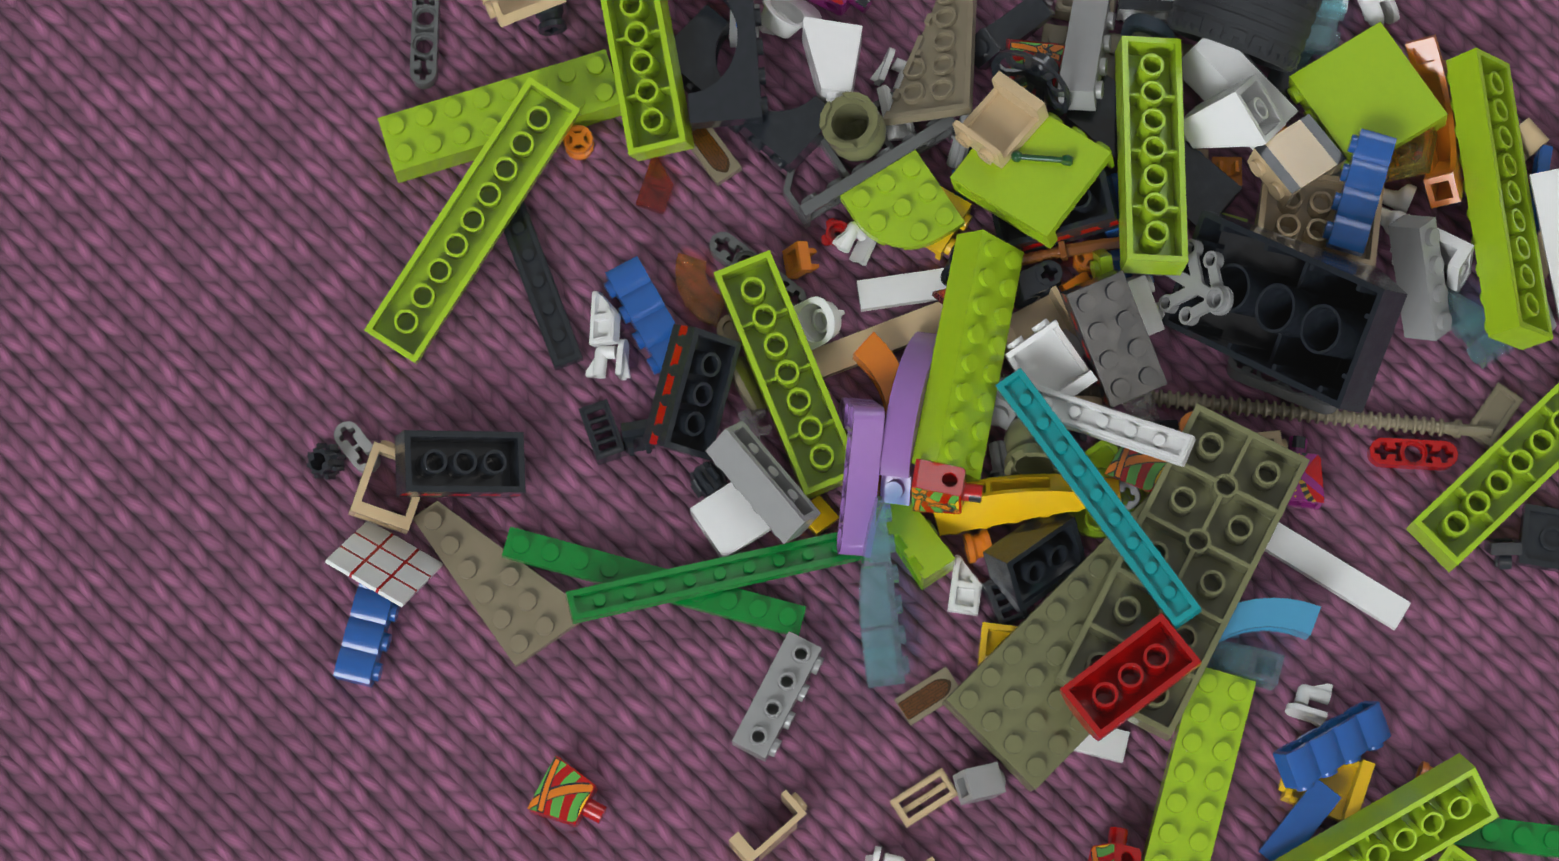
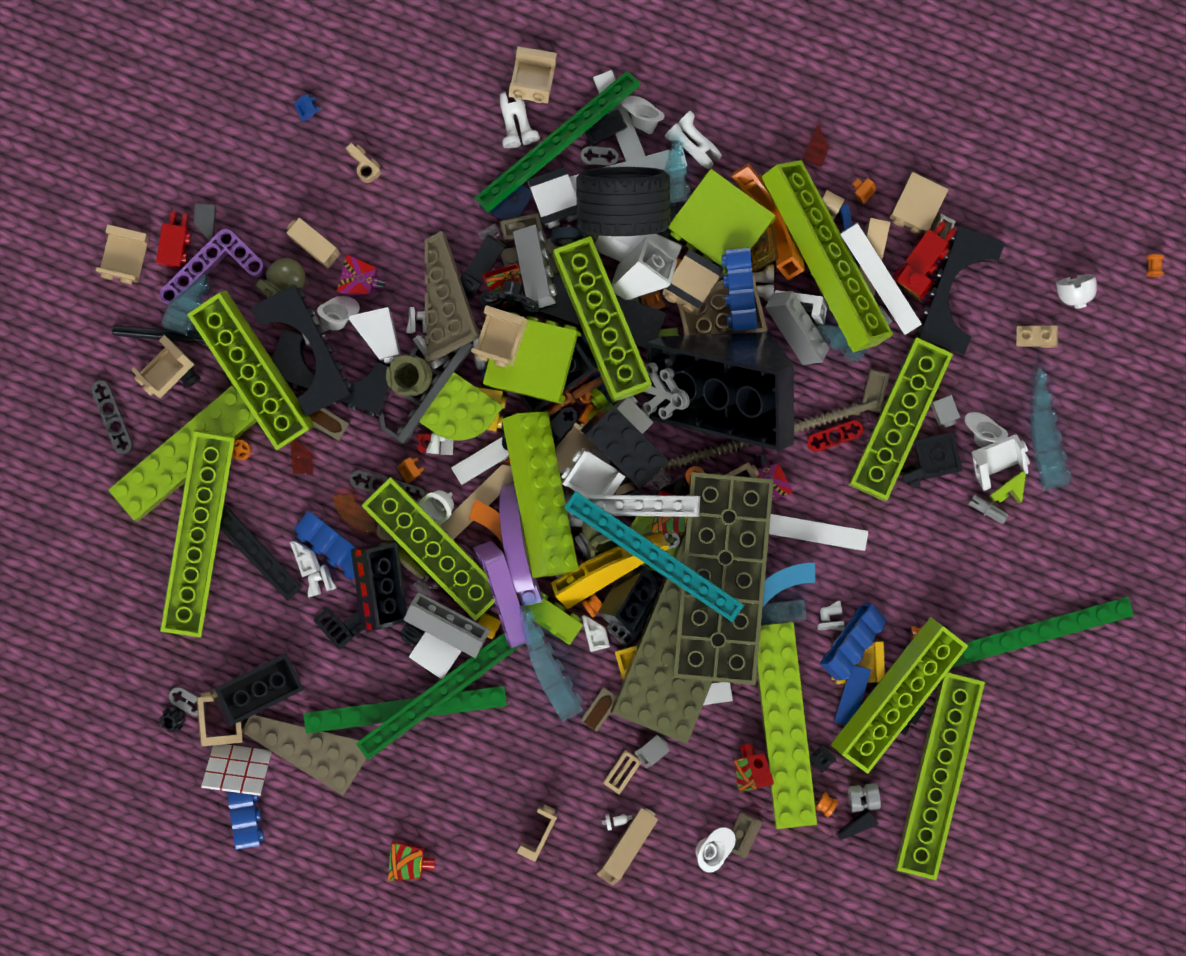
camera: 25 degrees left, 10 degrees up
(777, 696) = (509, 749): light grey brick -> none
(942, 488) = (550, 587): torso -> none
(1066, 160) = (519, 355): dark green hinge -> none
(1129, 677) = (717, 663): red brick -> none
(1534, 62) = (817, 148): none -> clear red tile

